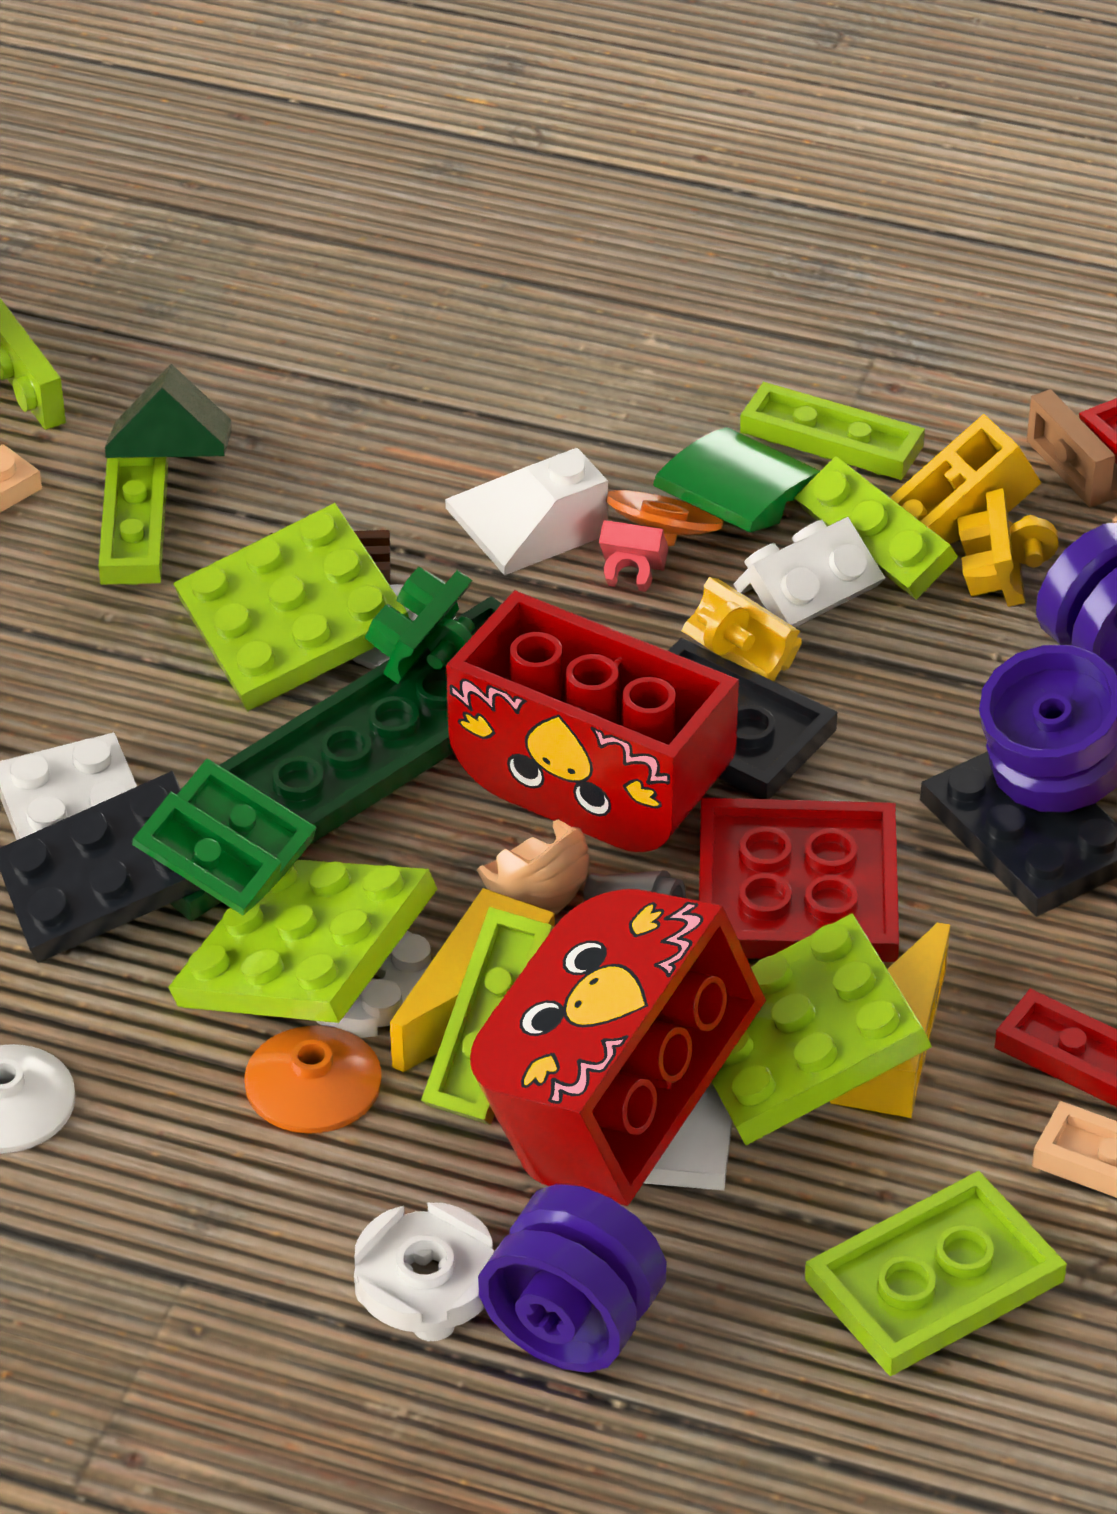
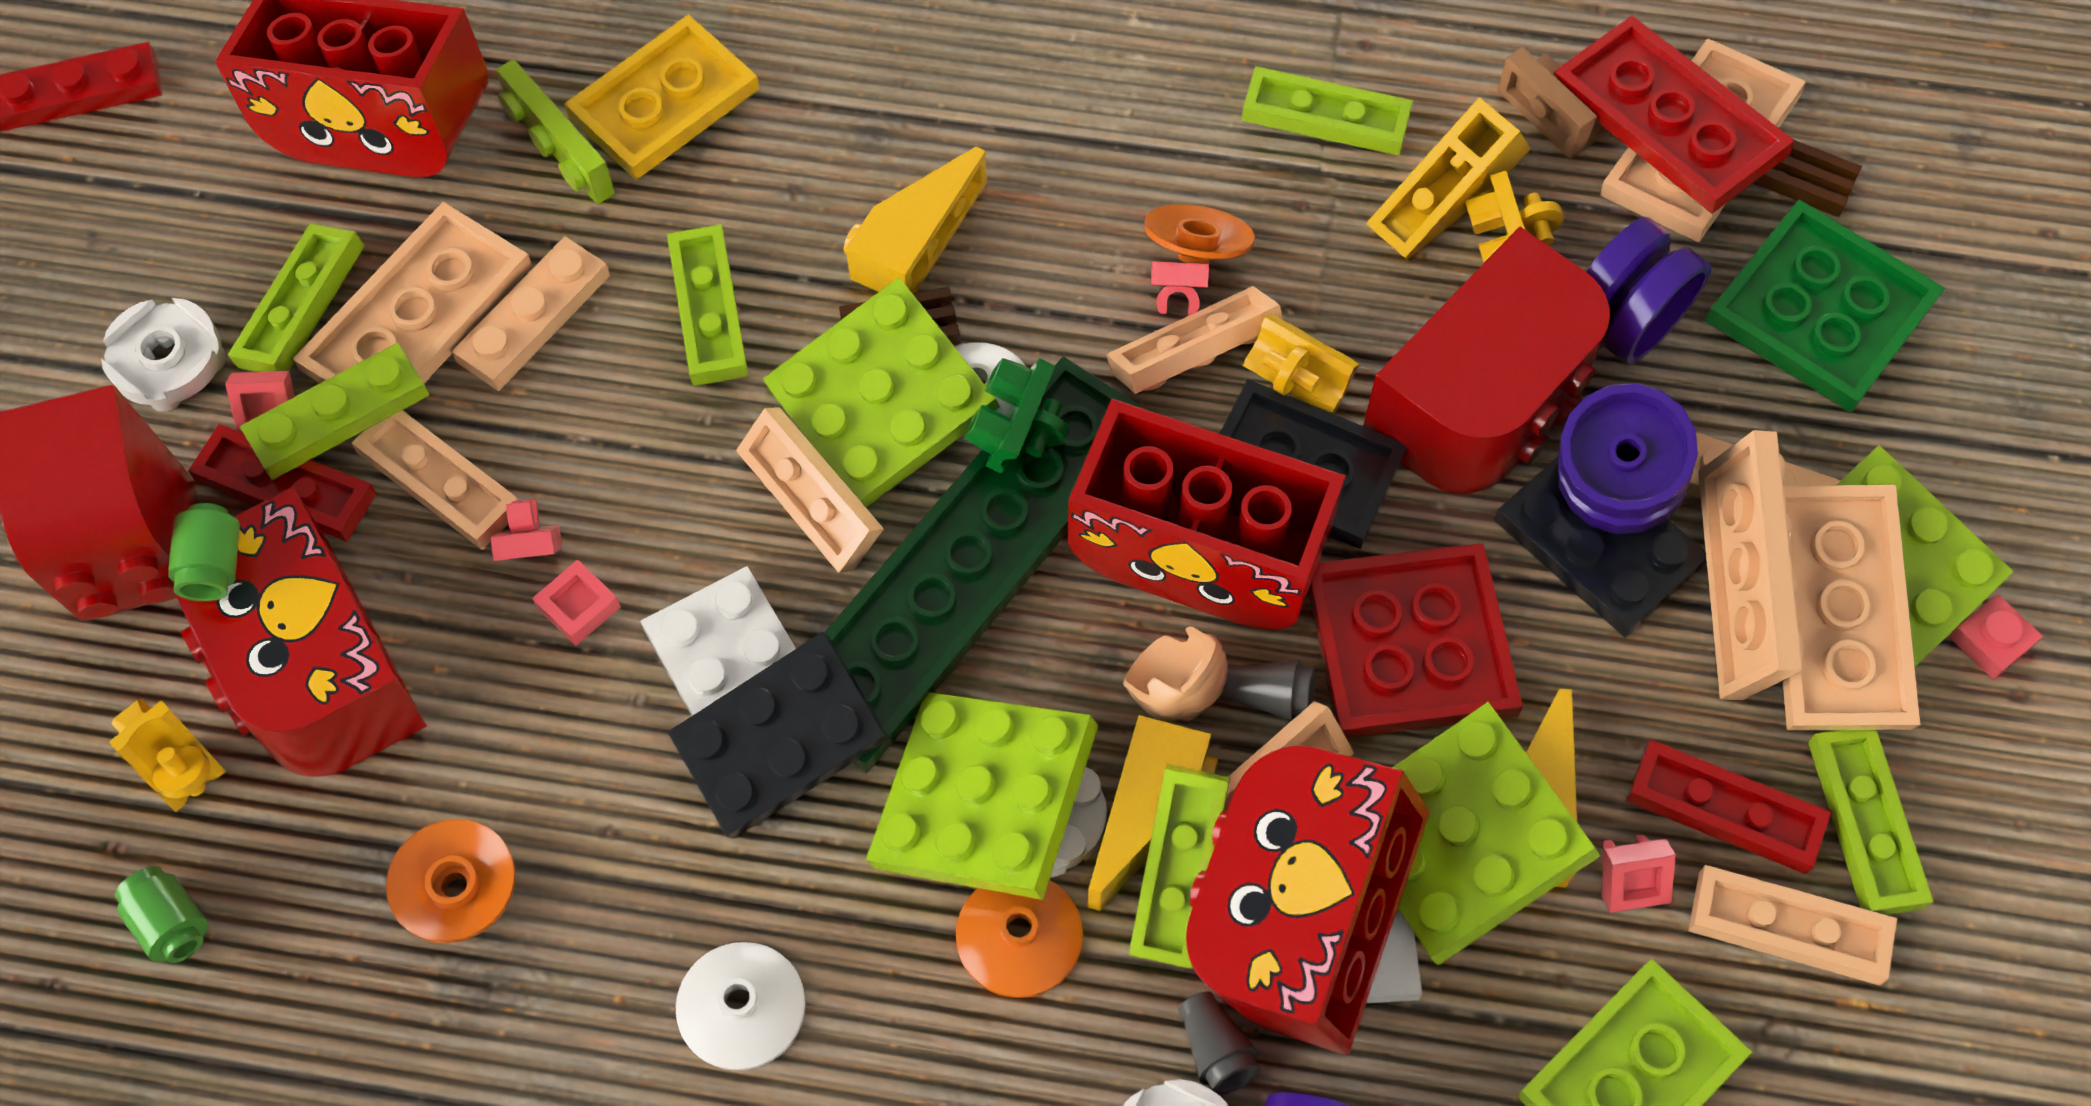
camera: 10 degrees left, 20 degrees up
(135, 340) = (662, 96): none -> yellow plate
(170, 421) = (718, 197): dark green slope -> none
(196, 676) = (809, 489): none -> light nougat plate
(225, 837) = (890, 707): green slope -> none
(373, 469) = (914, 226): none -> yellow slope
(493, 1185) = (1219, 1048): none -> dark grey cone
(535, 511) = (1074, 241): white slope -> none
(640, 602) = (1192, 340): none -> light nougat plate
(735, 479) = (1254, 180): green slope -> none
(813, 573) = (1344, 281): white bracket -> none
(896, 539) = (1393, 221): lime plate -> none
(920, 641) = (1493, 368): none -> red brick
(985, 1102) = (1637, 874): none -> coral tile

